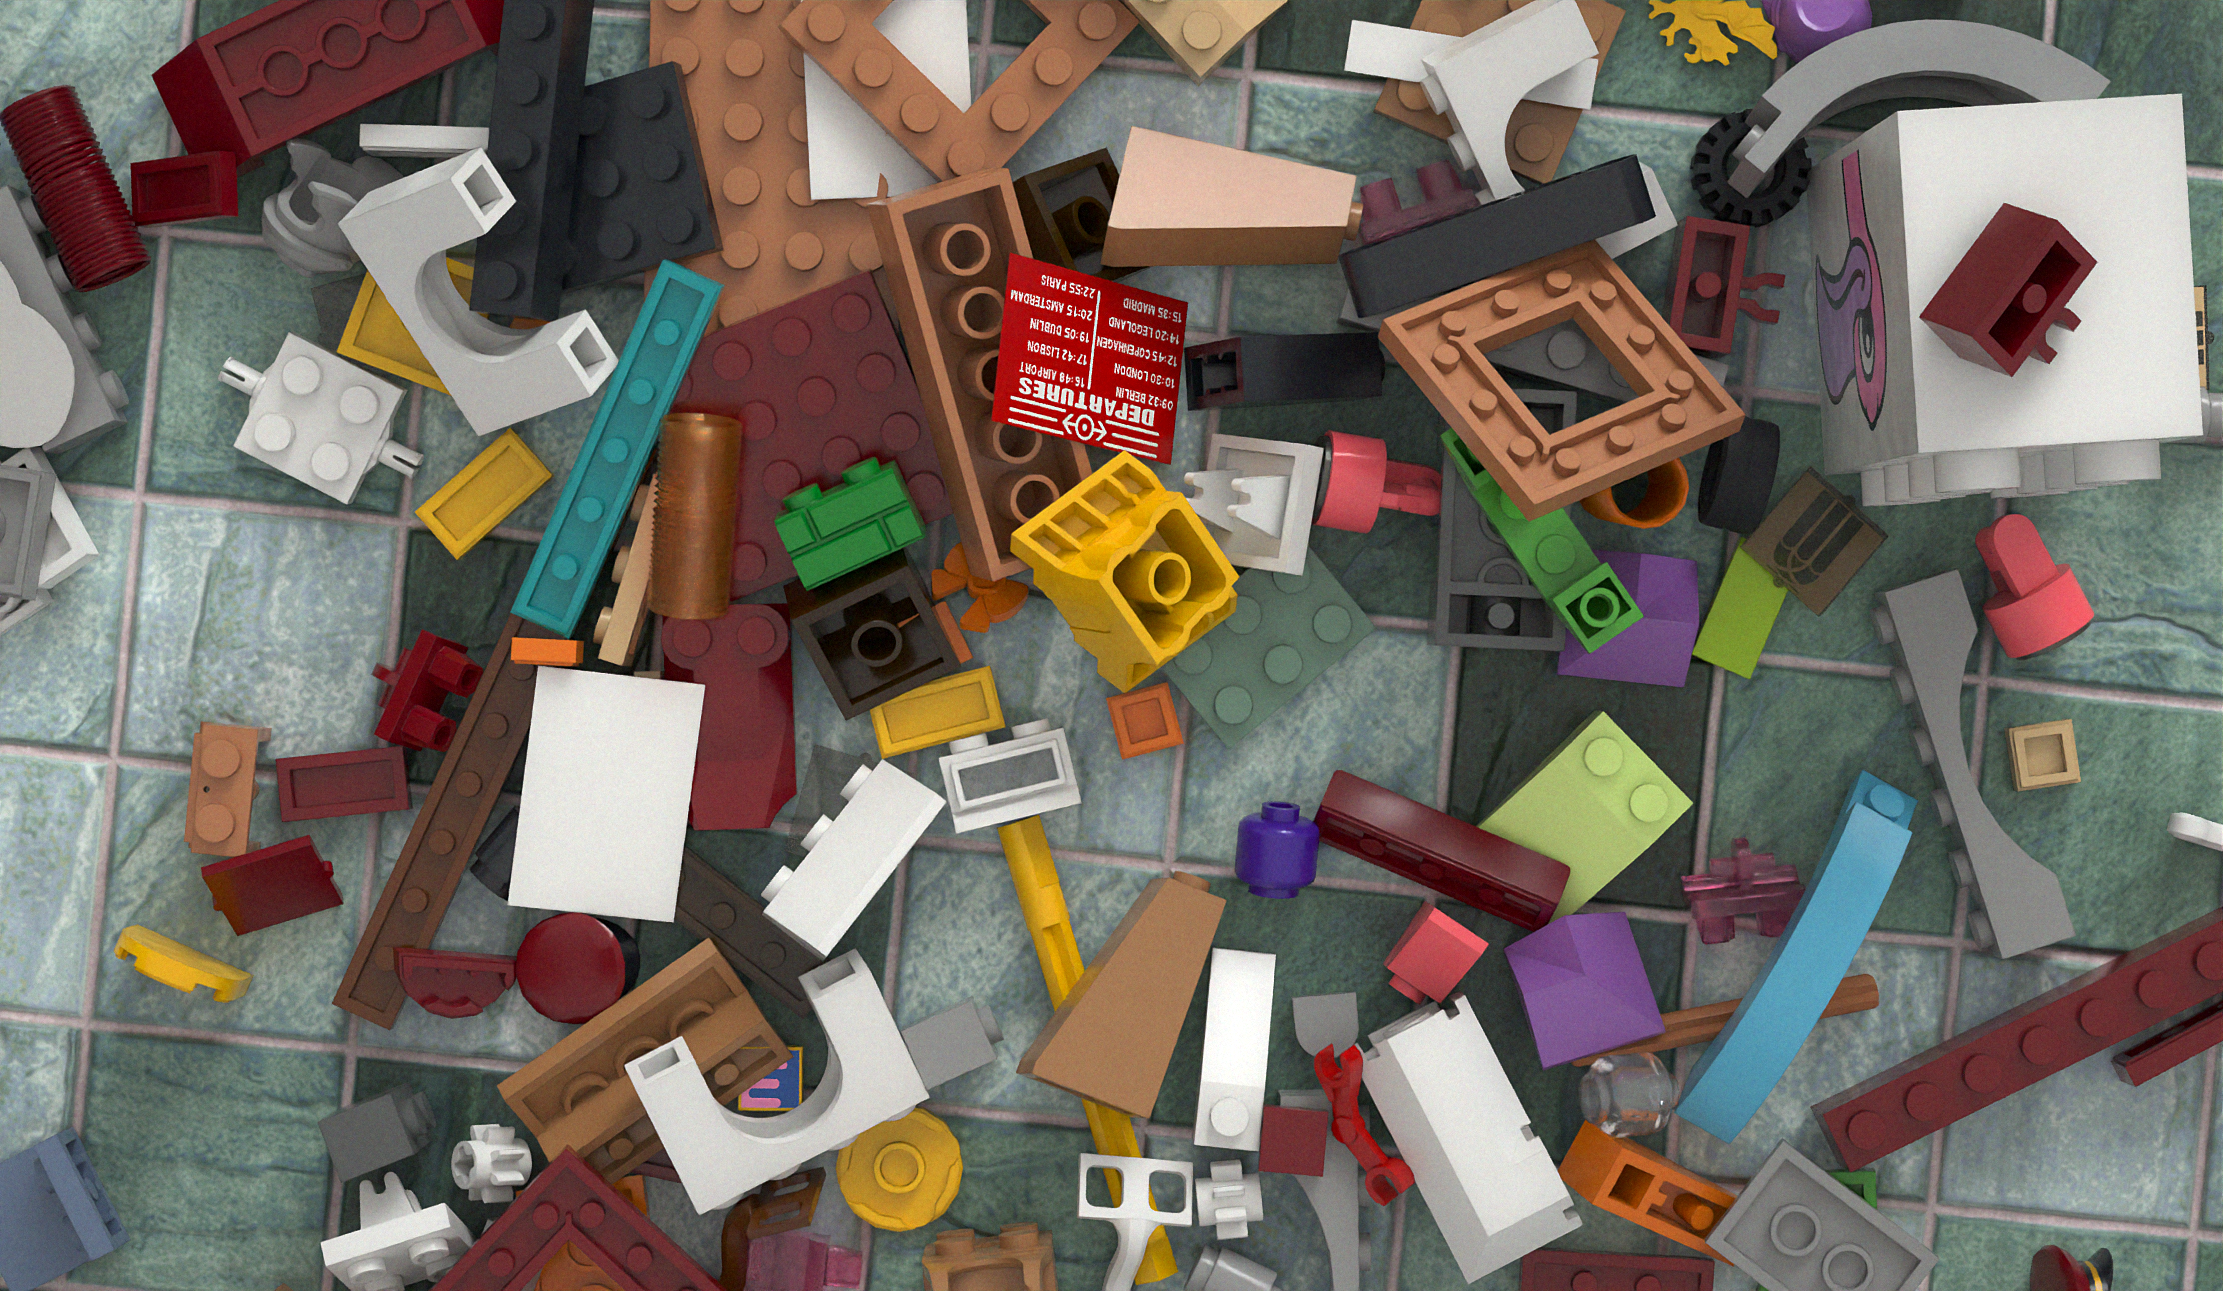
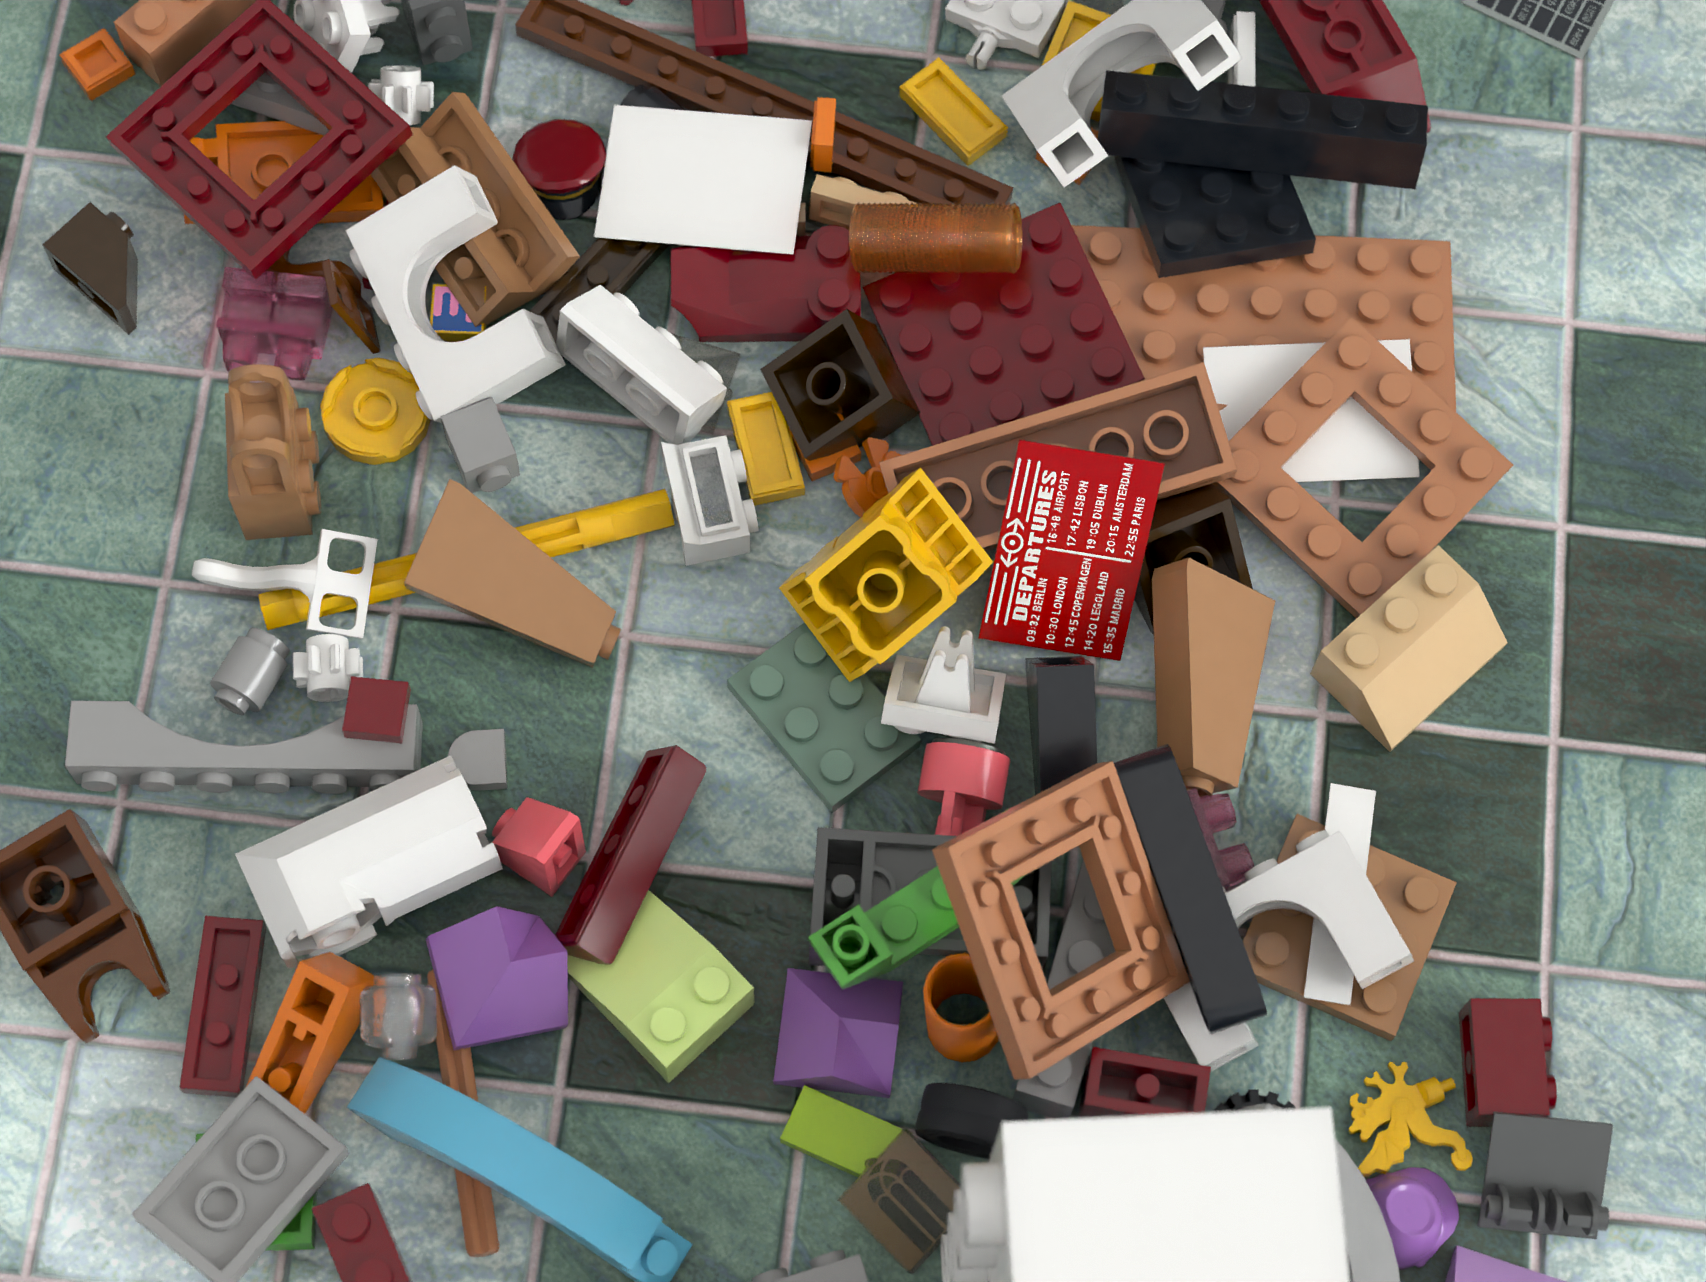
camera: 85 degrees right, 20 degrees down
(418, 691) = (792, 54): dark red hips -> none
(453, 981) = (552, 70): dark red tile -> none
(617, 448) = (971, 177): teal tile -> none
(849, 522) = (929, 359): green brick -> none
(1144, 720) = (754, 615): orange tile -> none
(1234, 1050) = (462, 676): white slope -> none
(1277, 850) = (635, 714): dark purple head -> none
(1350, 1128) = (429, 746): red piece -> none
(1742, 886) = (586, 1117): clear pink hips -> none
(2010, 291) = (1161, 1193): dark red brick -> none

